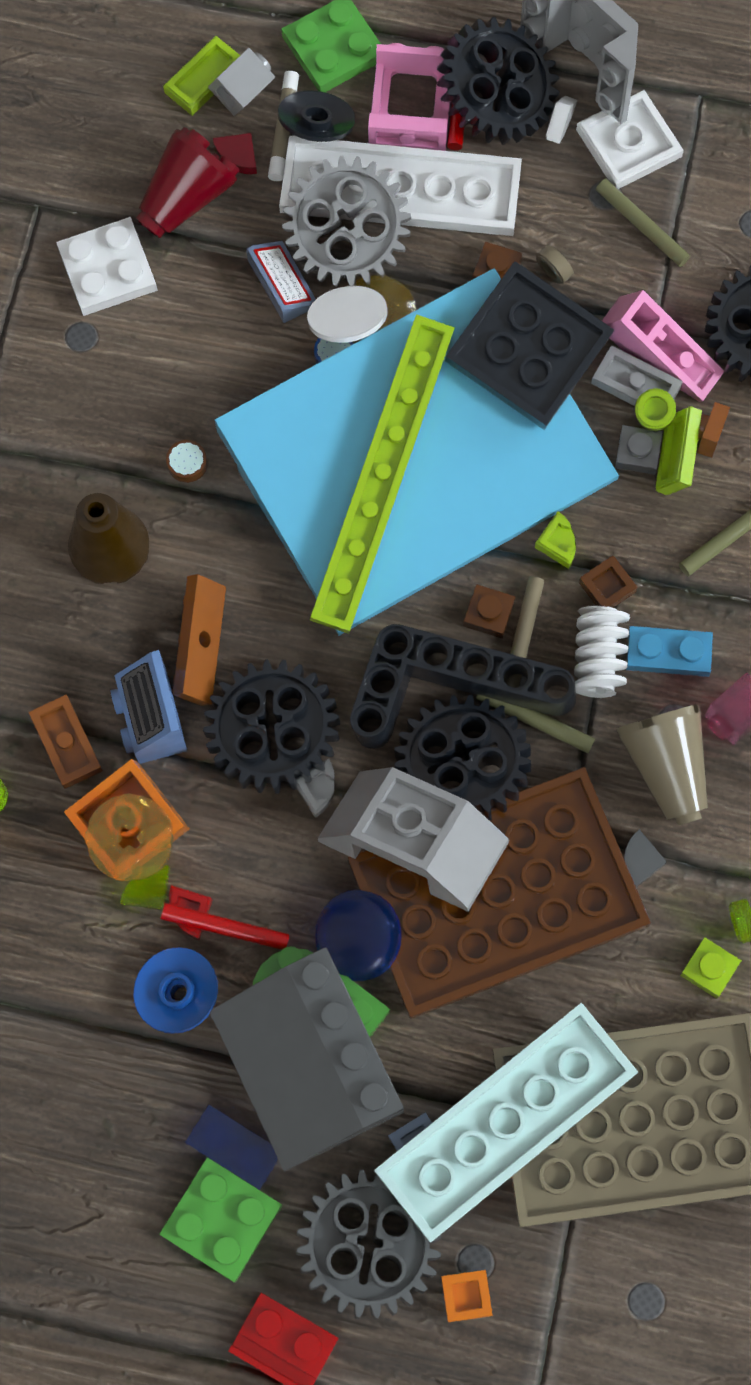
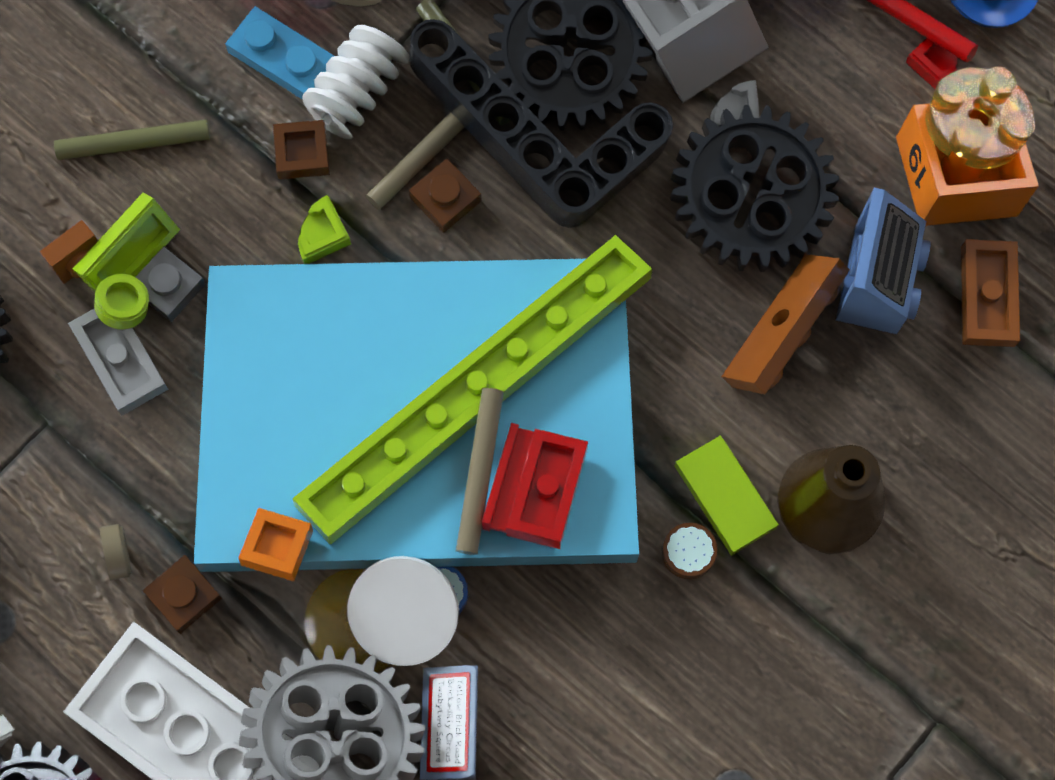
camera: 155 degrees left, 0 degrees up
(181, 509) = (726, 495): none -> lime tile
(305, 421) = (535, 486): none -> red plate
(346, 410) = (479, 471): none -> dark tan bar
(447, 297) = (275, 544): none -> orange plate
(529, 345) = (215, 442): black plate -> none
(655, 338) = (62, 384): bright pink slope -> none

